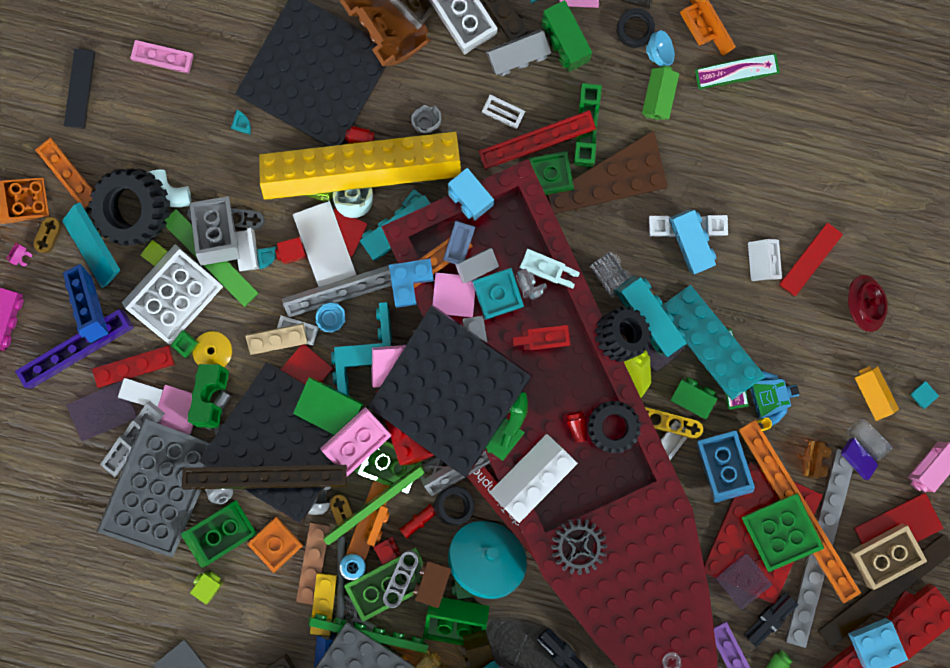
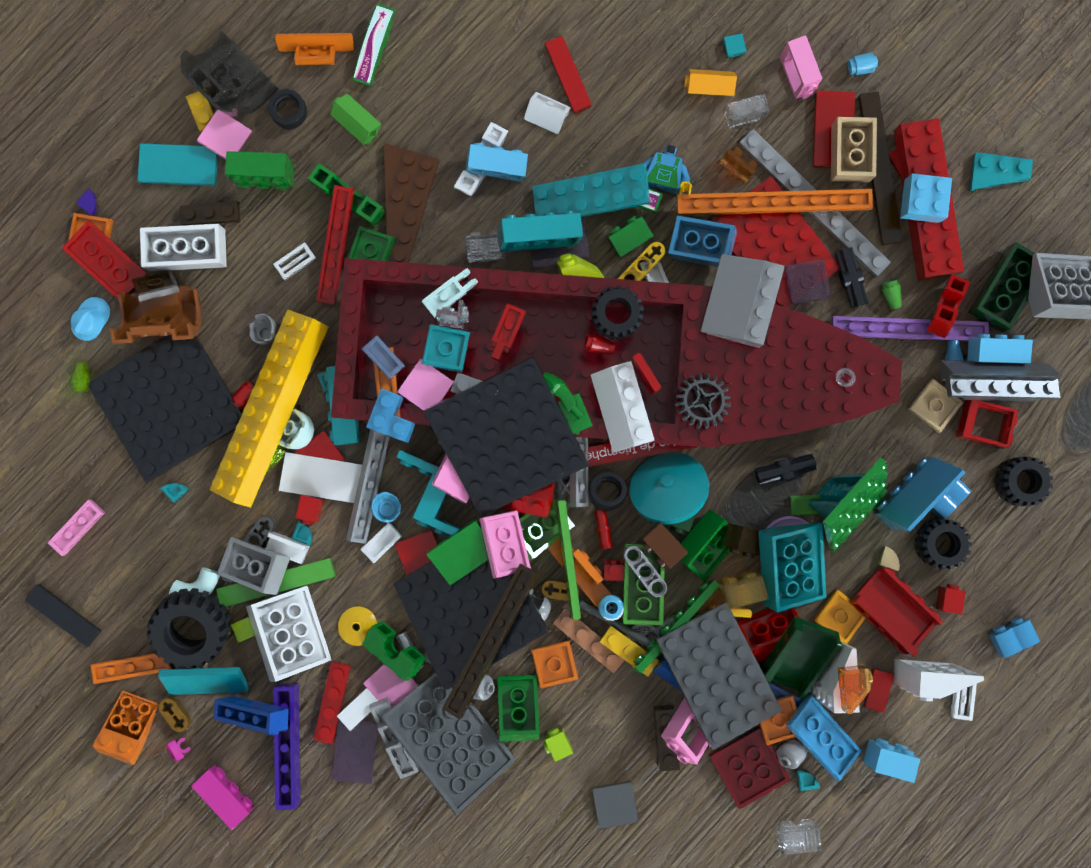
camera: 60 degrees left, 0 degrees up
(184, 344) = (337, 646): green tile -> none
(277, 338) = (378, 563): tan plate -> none
(470, 195) = (346, 323): medium azure brick -> none
(477, 265) = (411, 352): light grey tile -> none
(518, 52) = (251, 218): light grey brick -> none
(573, 482) = (645, 374): none -> red tile
(611, 340) = (541, 260): black tyre -> none
(660, 48) = (317, 97): medium azure piece -> none
(689, 531) = (742, 299): none -> light grey slope
(783, 532) = (785, 224): green plate -> none
(859, 459) = (758, 128): dark purple tile -> none
(867, 303) = (631, 46): dark red piece -> none

